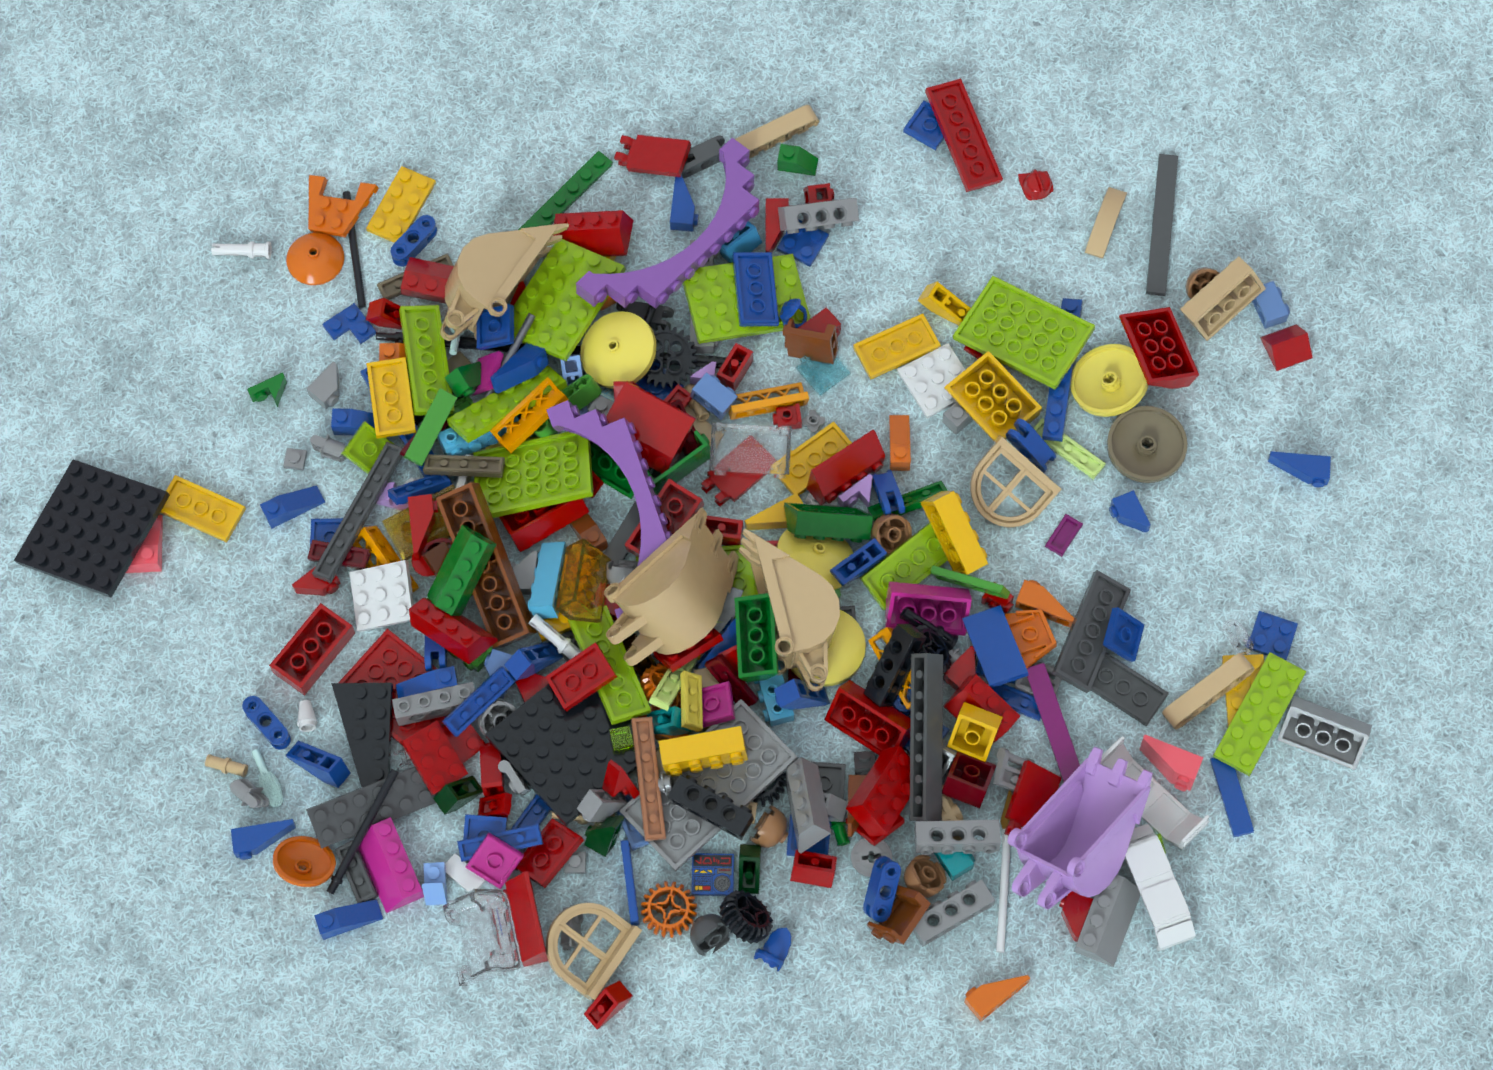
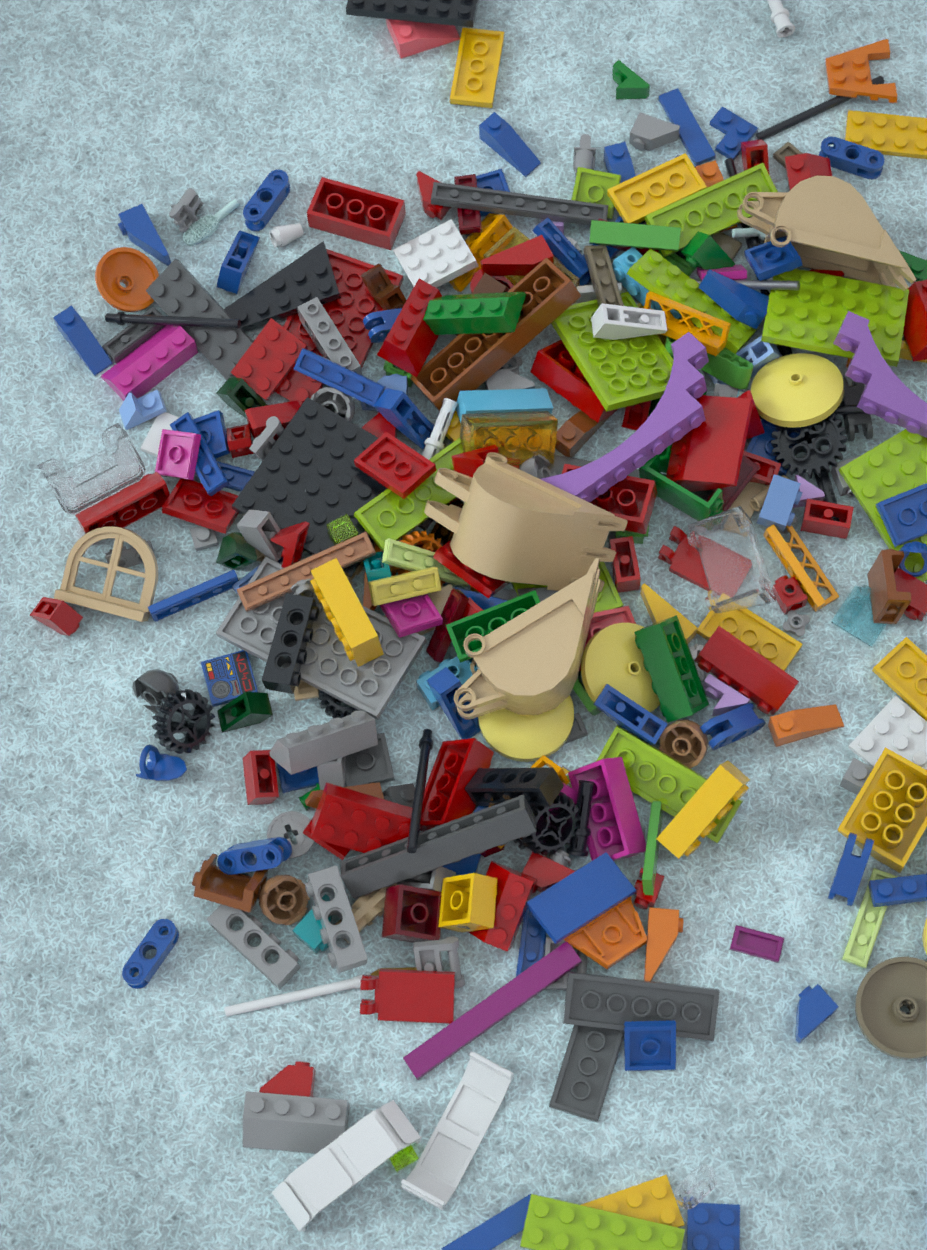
camera: 75 degrees right, 0 degrees up
(226, 765) = (212, 181): tan pin -> none
(295, 459) = (562, 133): light grey plate -> none
(315, 268) = (795, 86): orange dish -> none
(322, 358) = (690, 131): none -> blue tile
(402, 646) = (382, 290): none -> reddish brown slope
(428, 681) = (351, 331): blue slope -> none
(514, 456) = (626, 322): none -> white slope
(602, 612) = (468, 462): none -> red slope
(661, 906) = (173, 624): orange gear -> none
(771, 828) = (292, 718): medium nougat cylinder -> none
(825, 732) = (425, 746): none -> black bar
(911, 499) = (735, 753): green plate -> none
(933, 986) = (152, 940): none -> blue piece
(992, 995) = (165, 1012): orange slope -> none
(1026, 468) = (819, 871): tan window -> none
(1080, 832) = (371, 1053): lavender piece -> none
(1173, 762) = (501, 1154): coral slope -> none
(1208, 691) = (611, 1167): tan beam -> none

